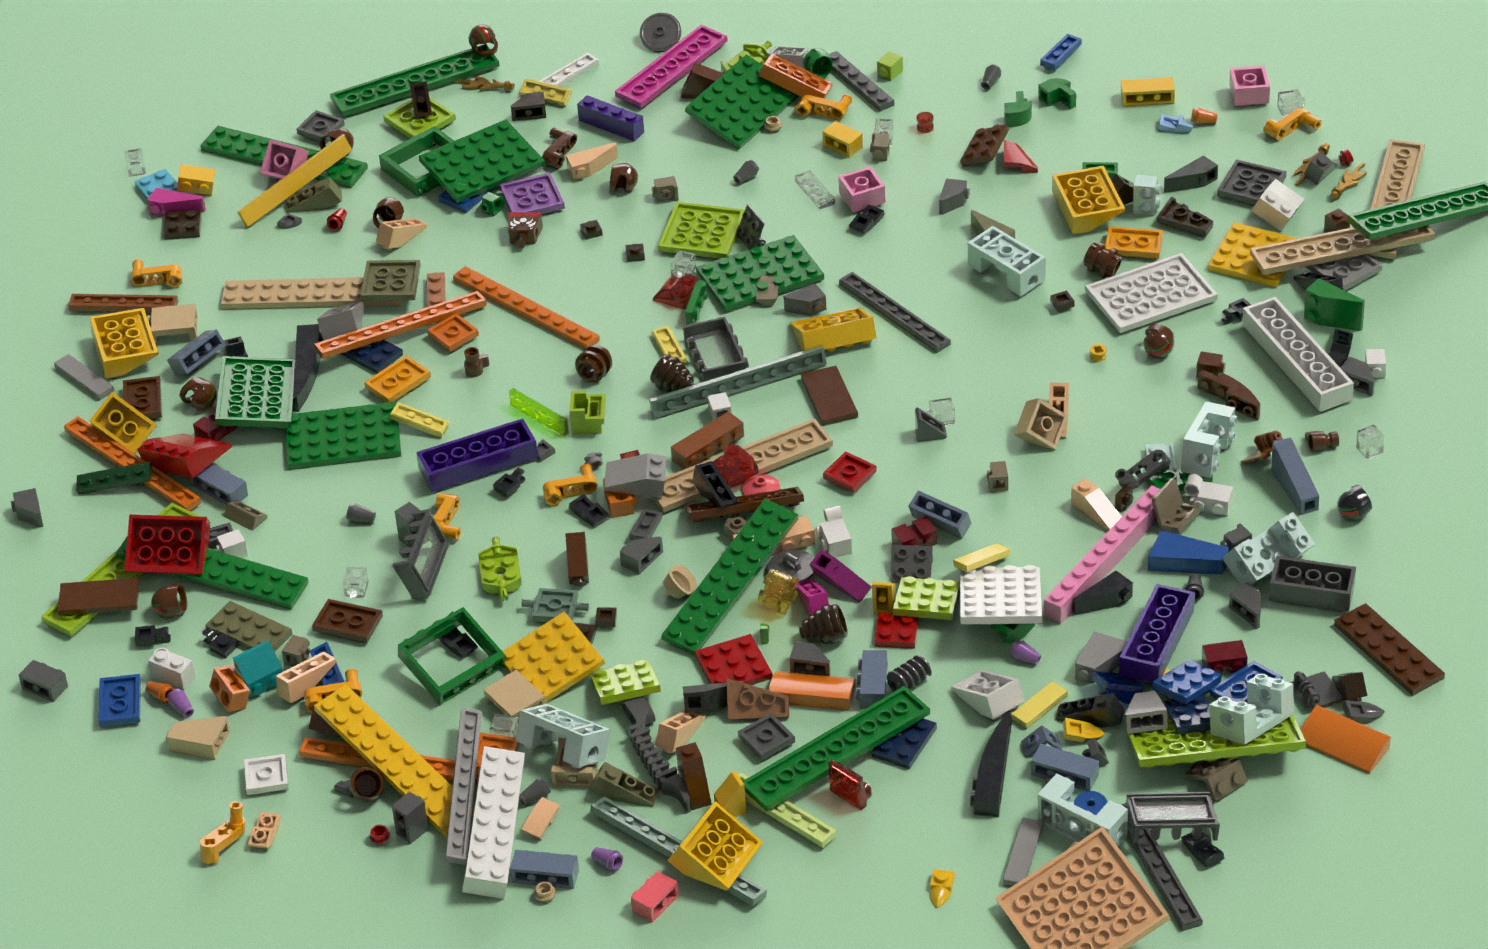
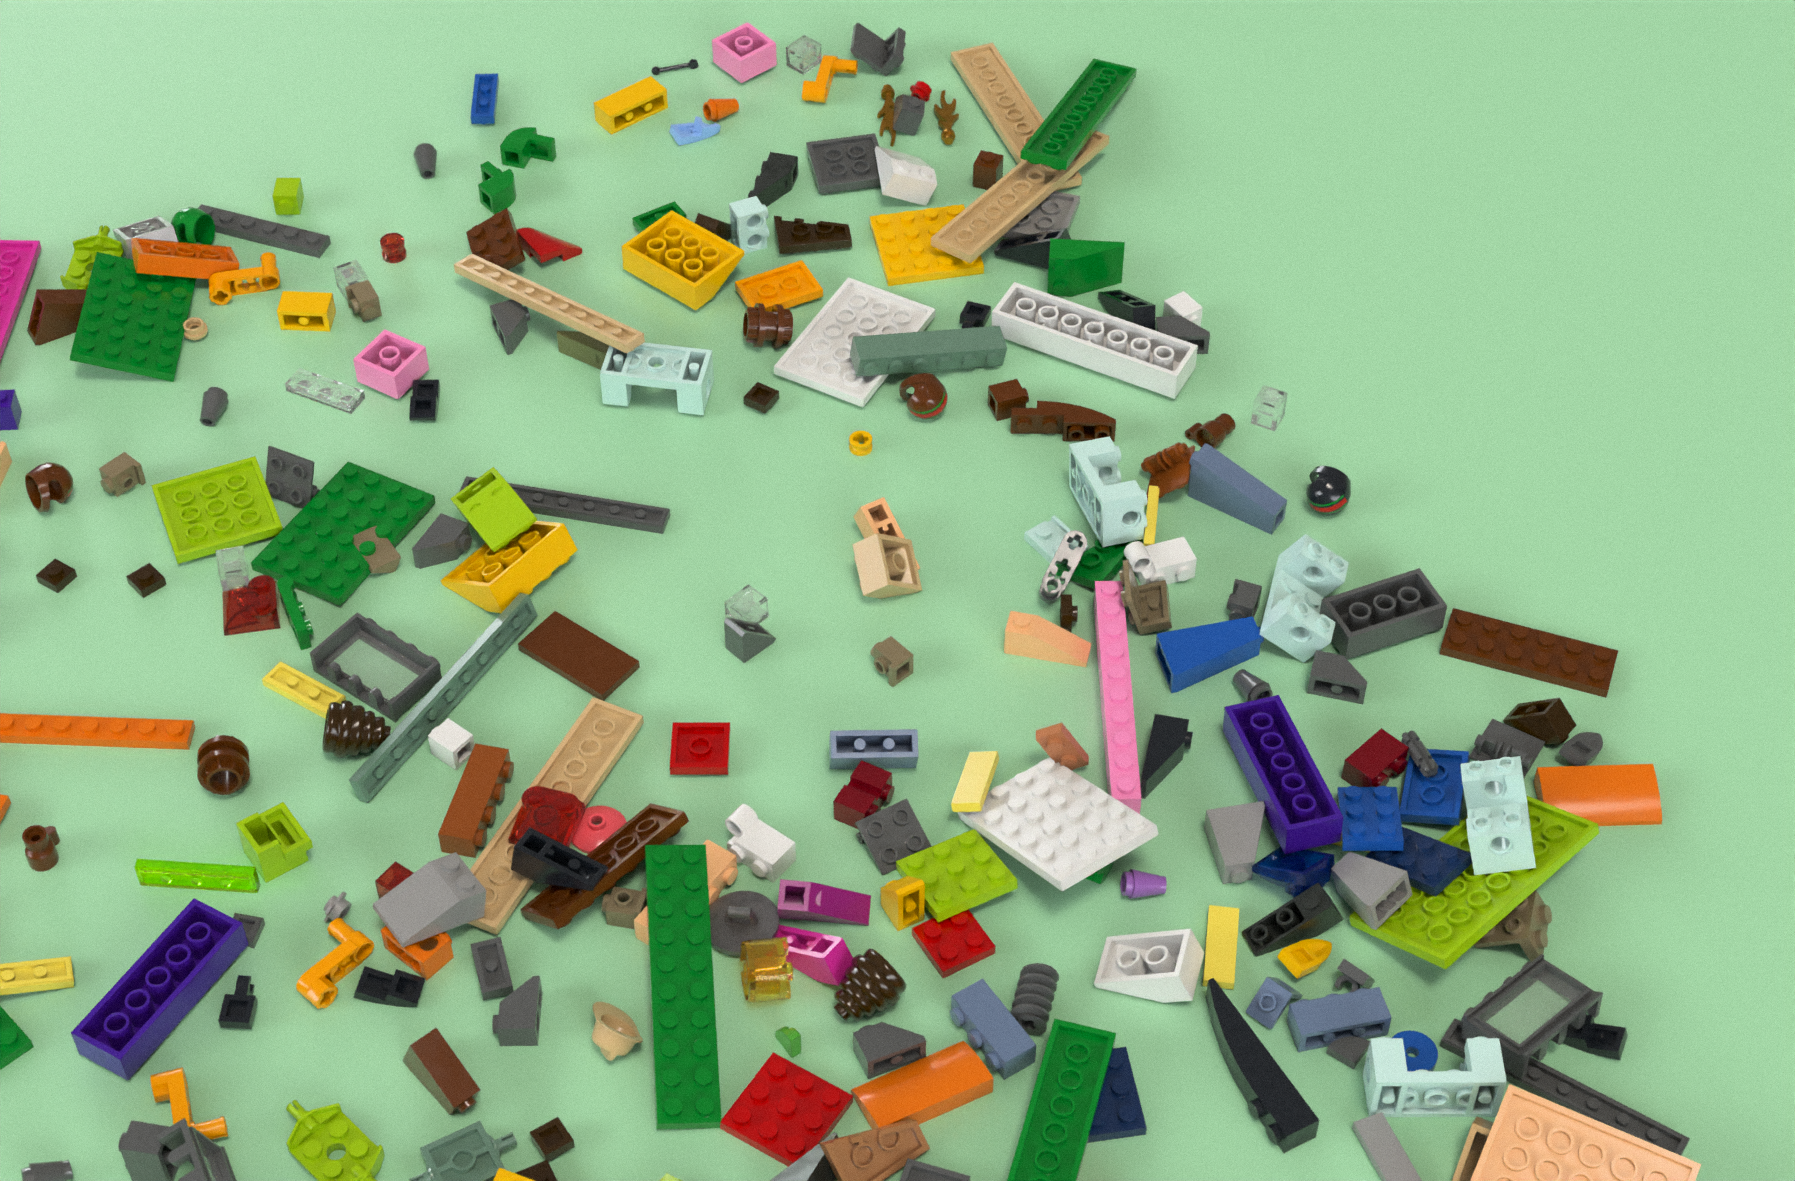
camera: 40 degrees left, 5 degrees up
(844, 293) = (493, 509): none -> lime slope
(976, 190) = (550, 303): none -> tan plate
(1043, 561) = (1062, 746): none -> nougat plate
(1185, 315) = (928, 351): none -> sand green brick
(1215, 81) = (693, 64): none -> black hinge
(1229, 469) = (1151, 515): none -> light yellow tile
(1251, 663) = (1420, 754): none -> dark grey axle
(1339, 117) = (876, 52): none -> dark grey bracket

